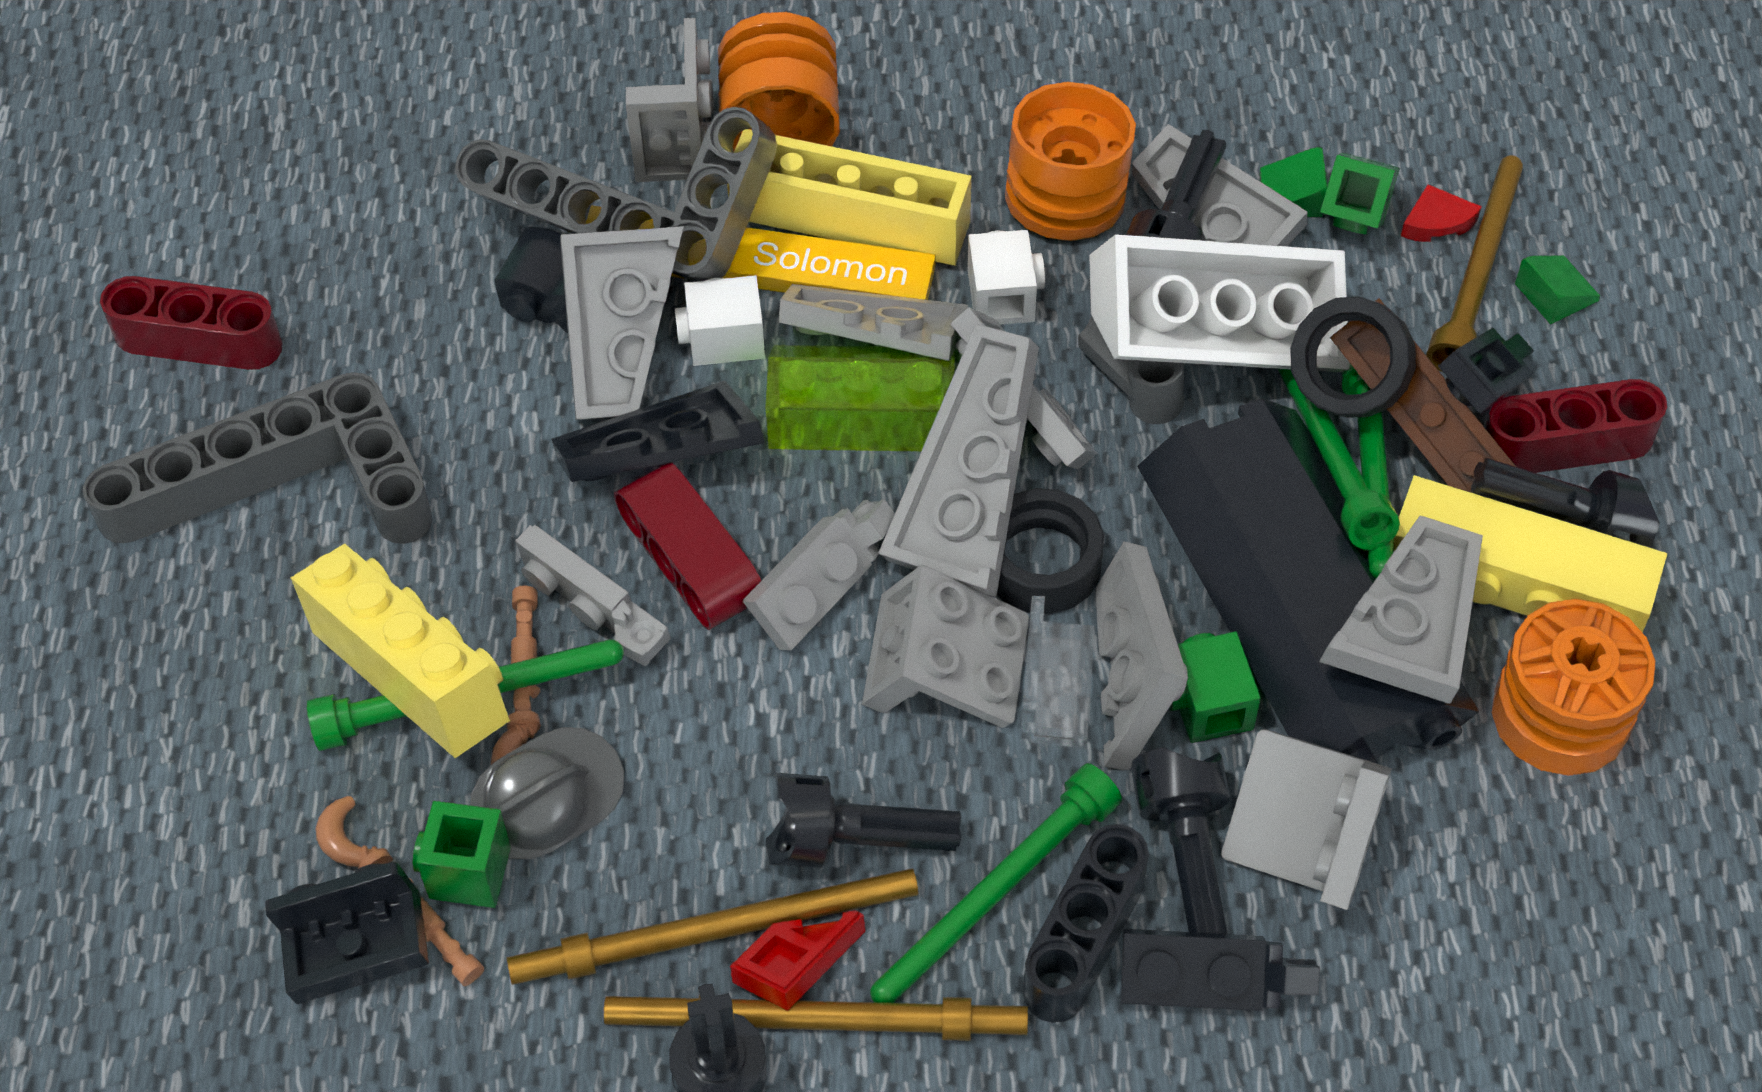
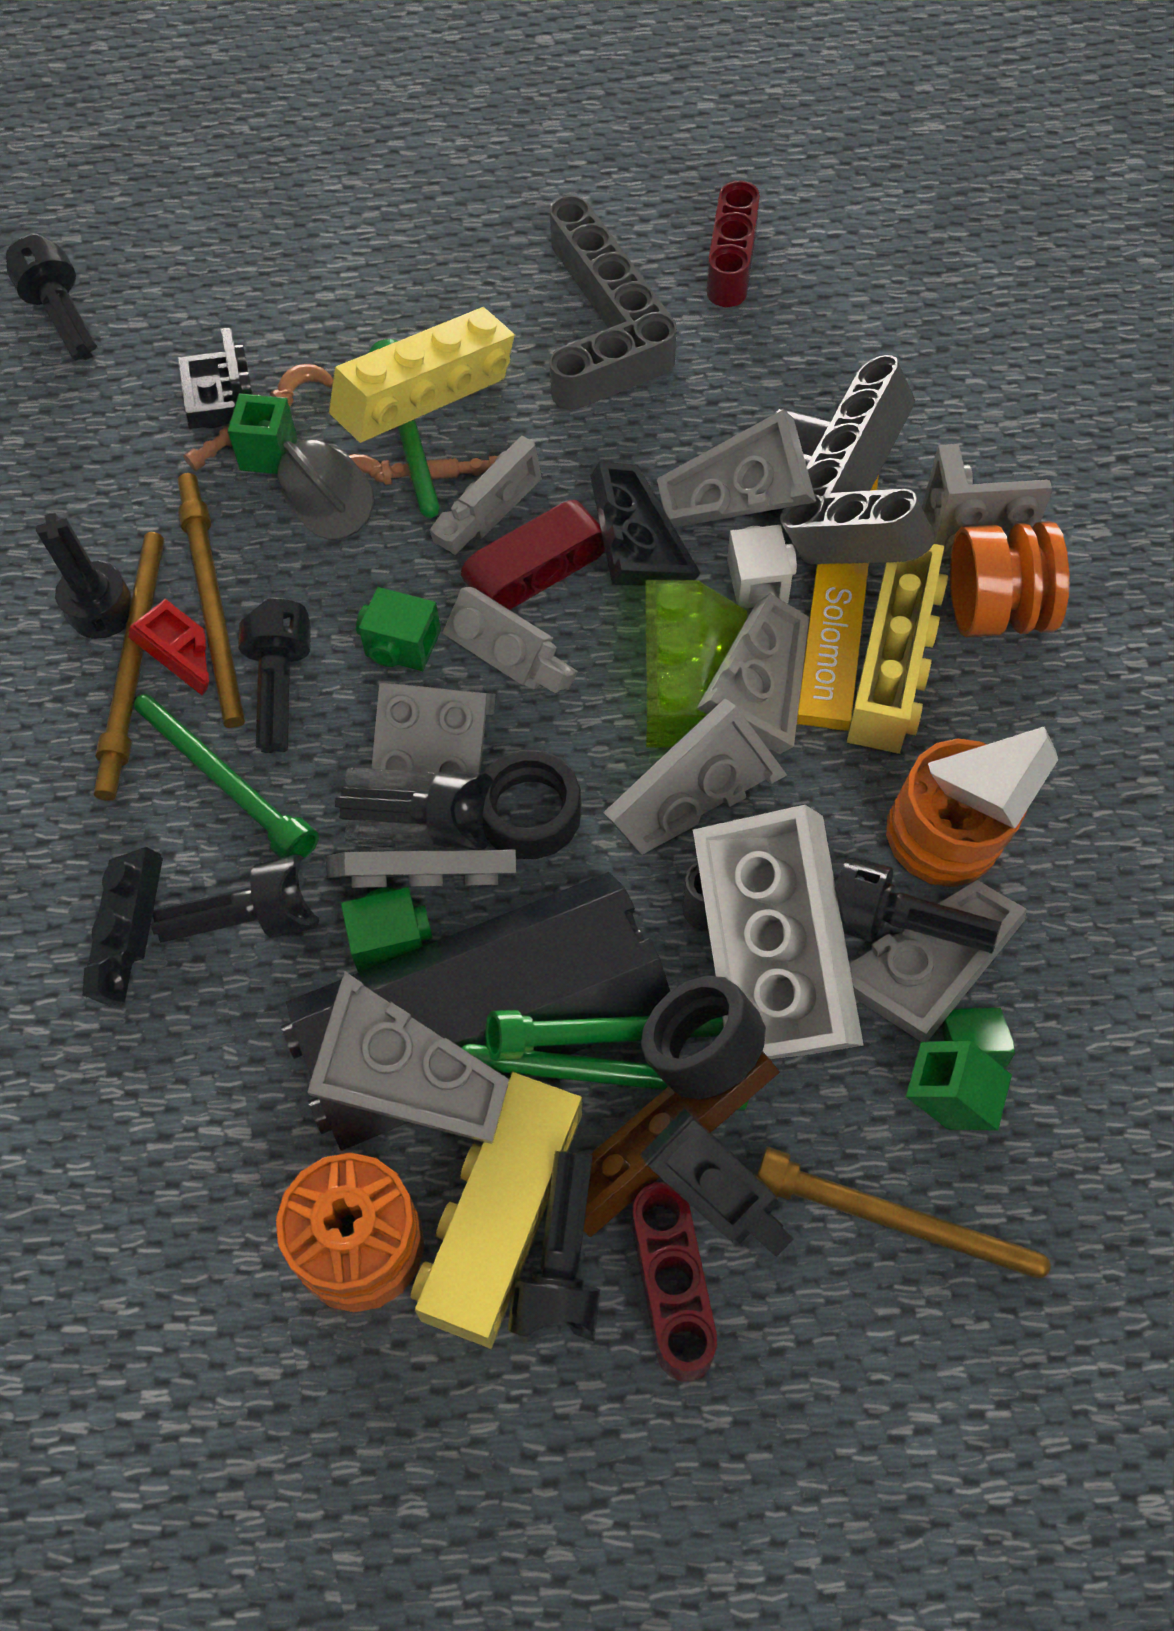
camera: 90 degrees right, 5 degrees up
(794, 688) = (398, 629): none -> green brick
(967, 472) = (583, 723): light grey wing -> none
(1004, 275) = (826, 770): white brick -> none
(1072, 86) = (998, 776): none -> white slope
(1084, 592) = (449, 808): none -> black piece
(1093, 894) = (161, 811): black beam -> none
(1306, 814) = (243, 1000): light grey bracket -> none
(1439, 215) = (955, 1179): red tile -> none
(1554, 286) = (872, 1295): green slope -> none

